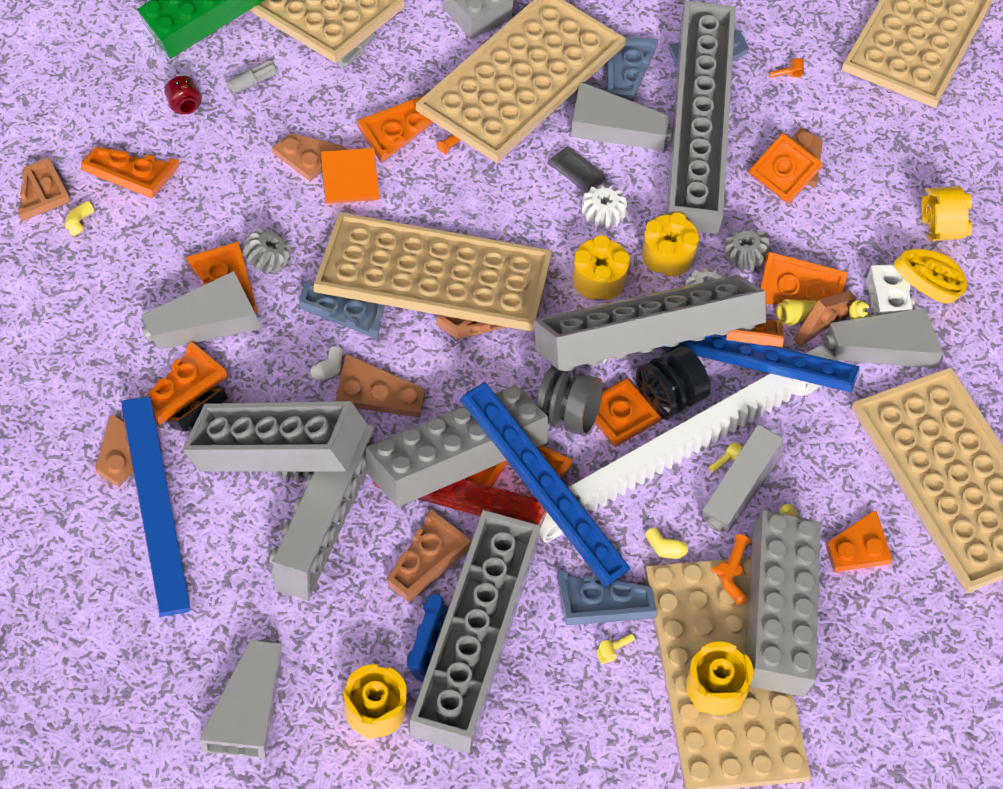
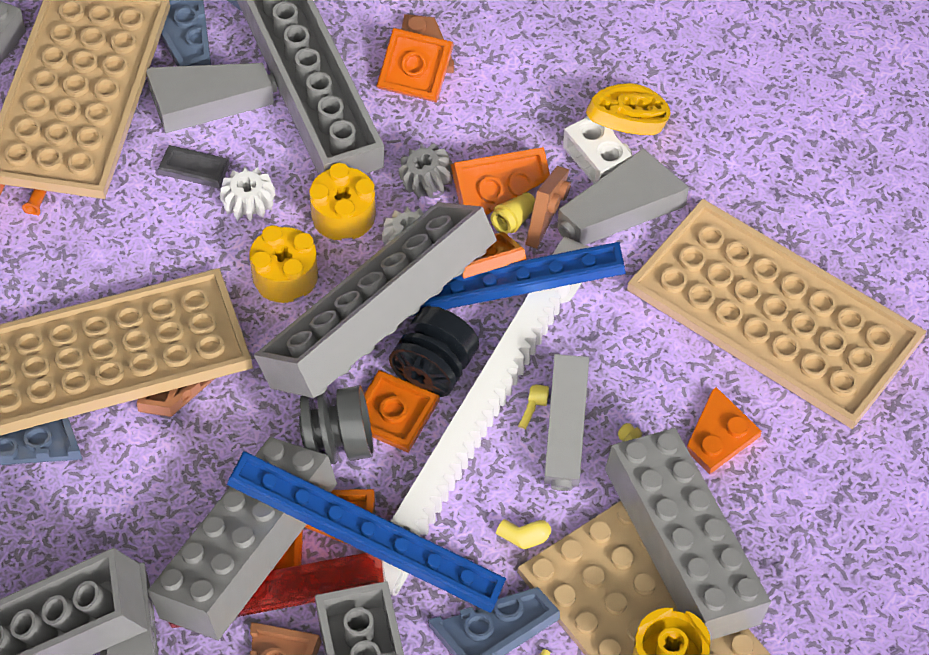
camera: 25 degrees left, 0 degrees up
(330, 367) = (45, 518): white arm -> none
(378, 390) = (113, 517): nougat wing -> none
(728, 570) = (607, 528): orange piece -> none
(857, 310) = (578, 183): light yellow arm -> none
(946, 213) = (607, 38): yellow brick -> none

